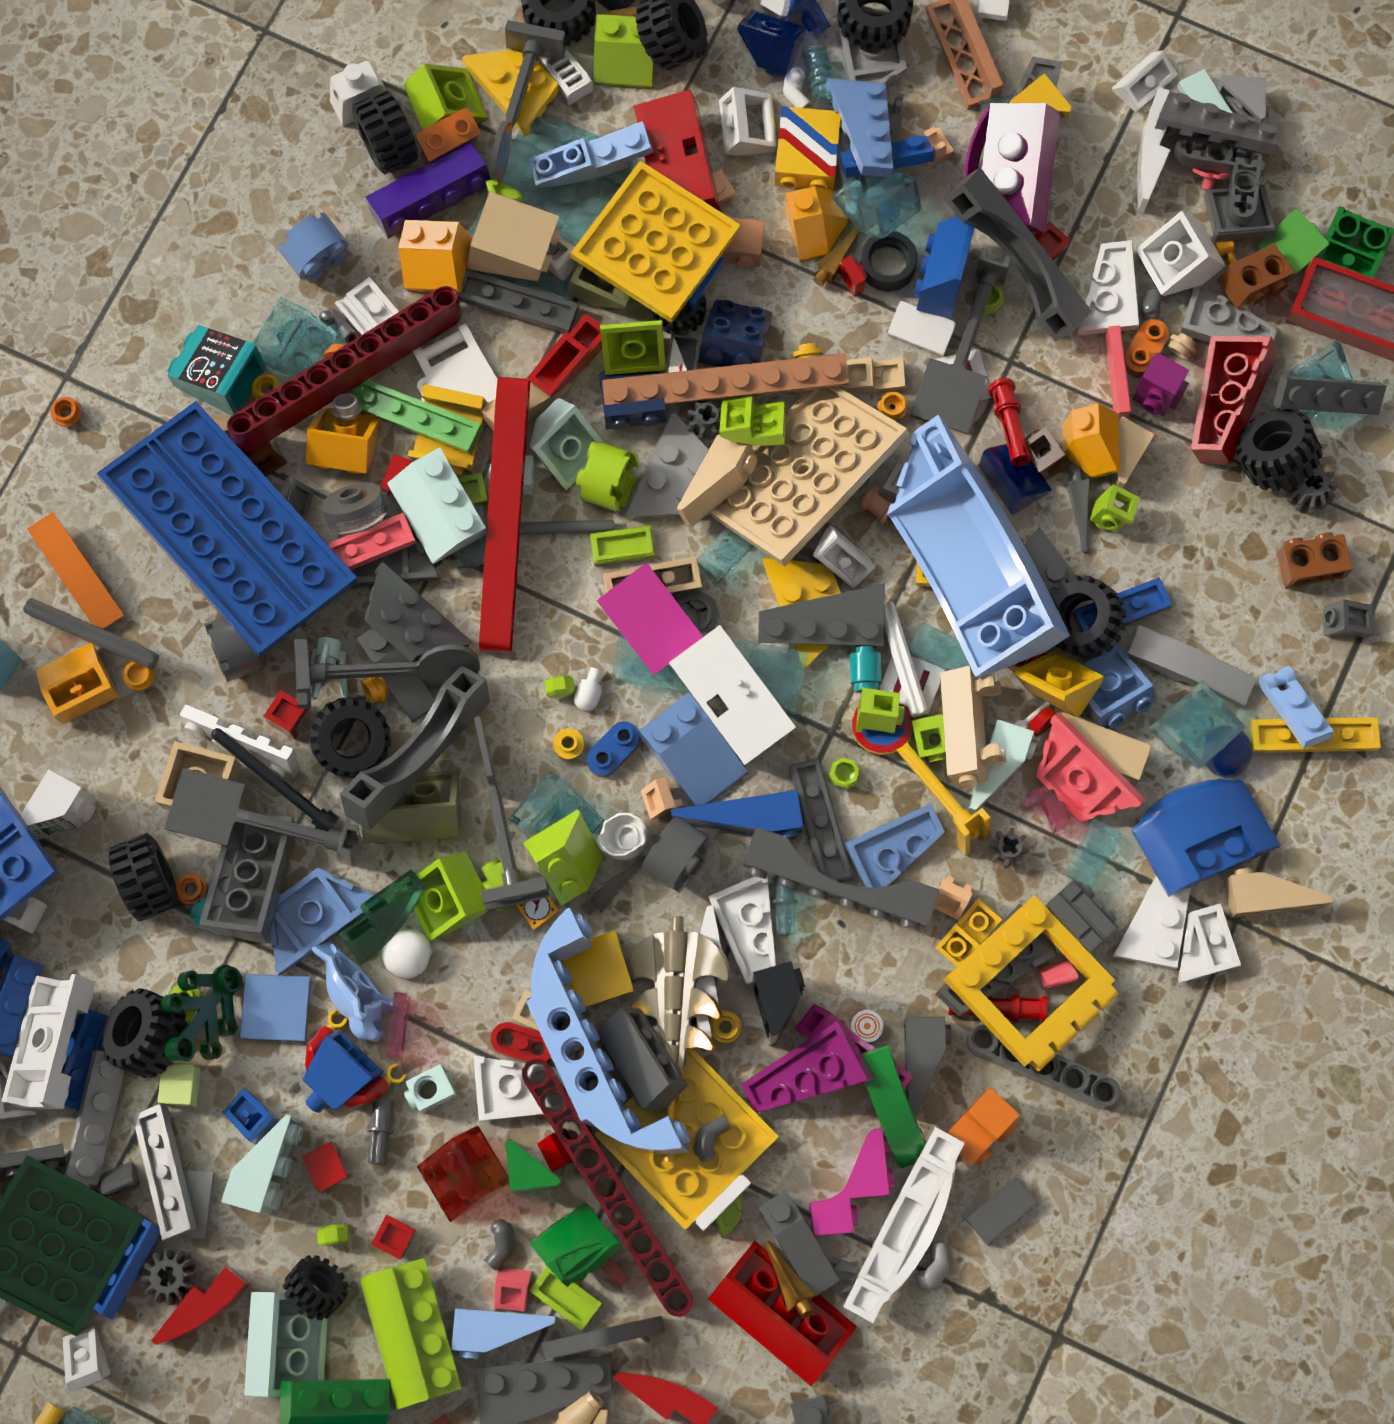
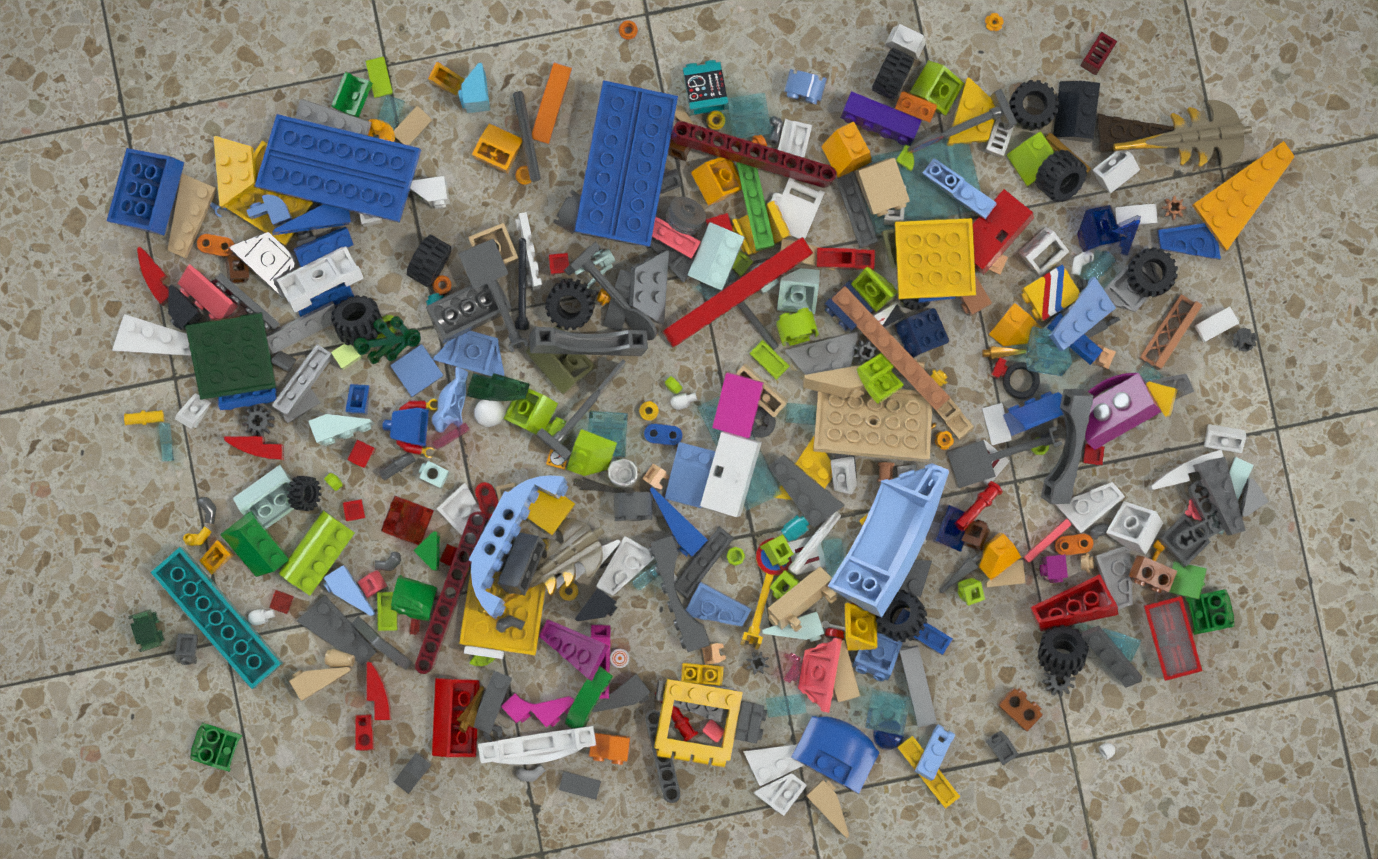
camera: 45 degrees right, 10 degrees up
(346, 407) = (734, 169): light grey plate -> none

